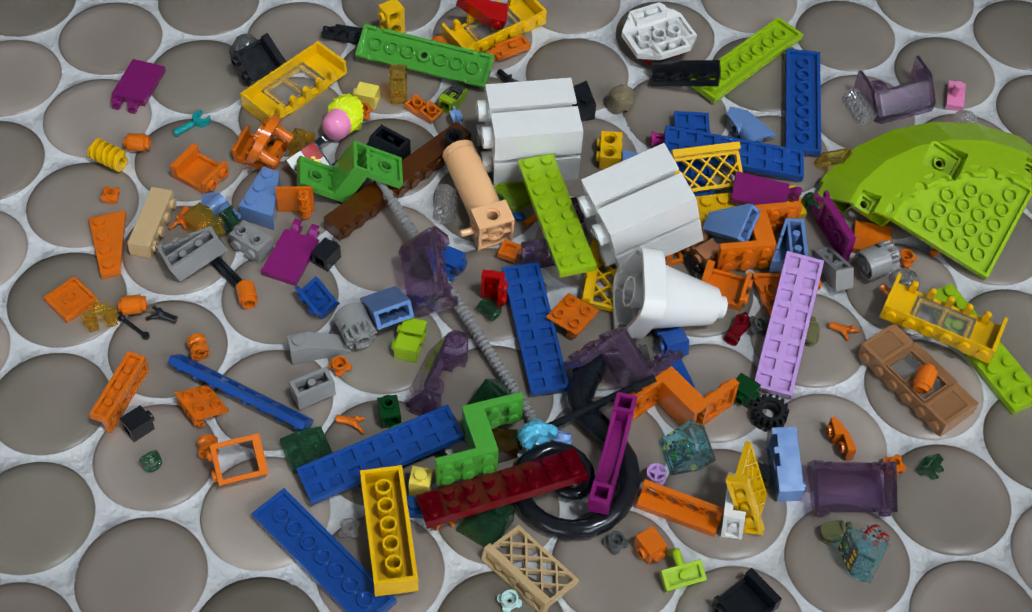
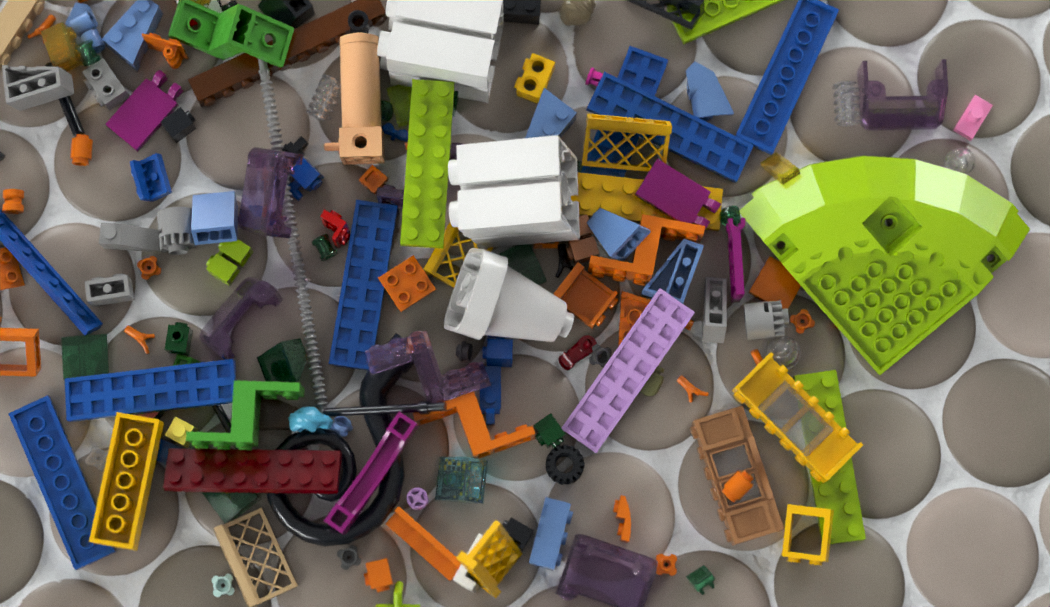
camera: 20 degrees right, 25 degrees up
(994, 384) = (827, 514): none -> yellow window

